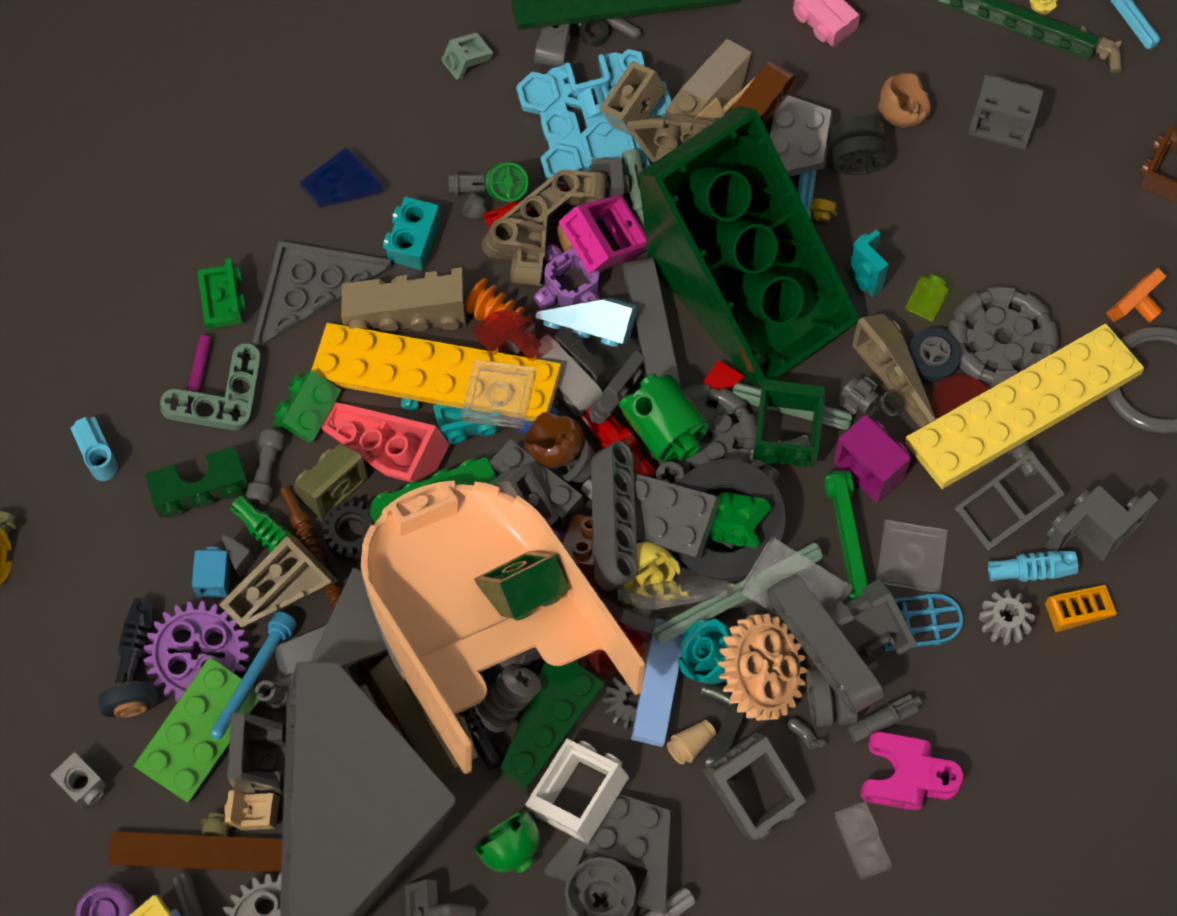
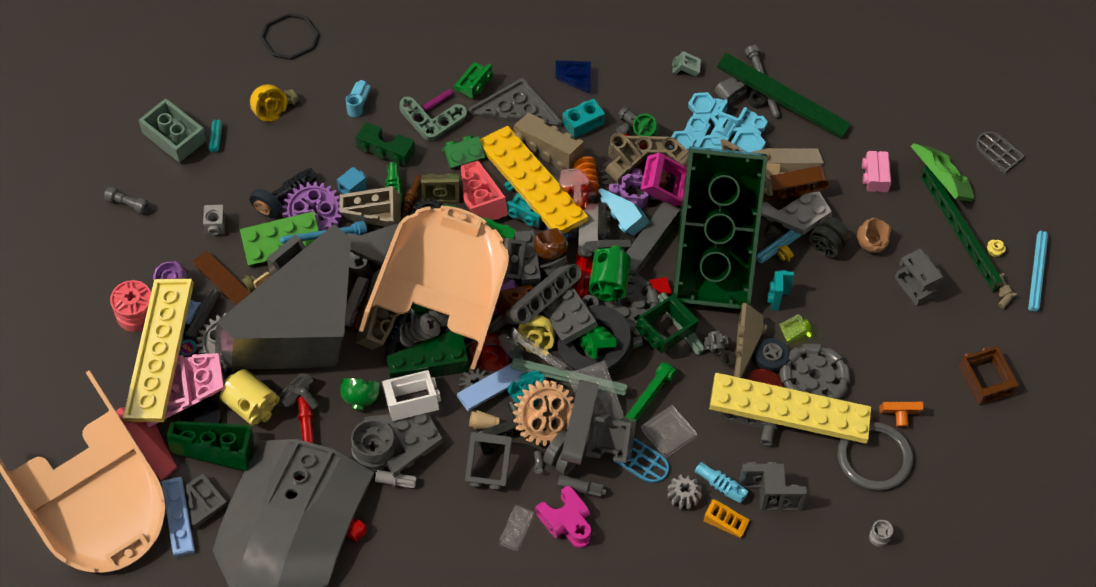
camera: 40 degrees right, 10 degrees down
(239, 555) = (370, 182): dark grey slope -> none
(259, 490) = (432, 154): dark grey piece -> none
(498, 394) = (546, 205): clear tile -> none
(523, 584) = (470, 286): dark green slope -> none
(632, 96) = (740, 132): dark tan brick -> none
(872, 458) = (691, 371): magenta brick -> none
(1023, 519) = (738, 458): dark grey window -> none

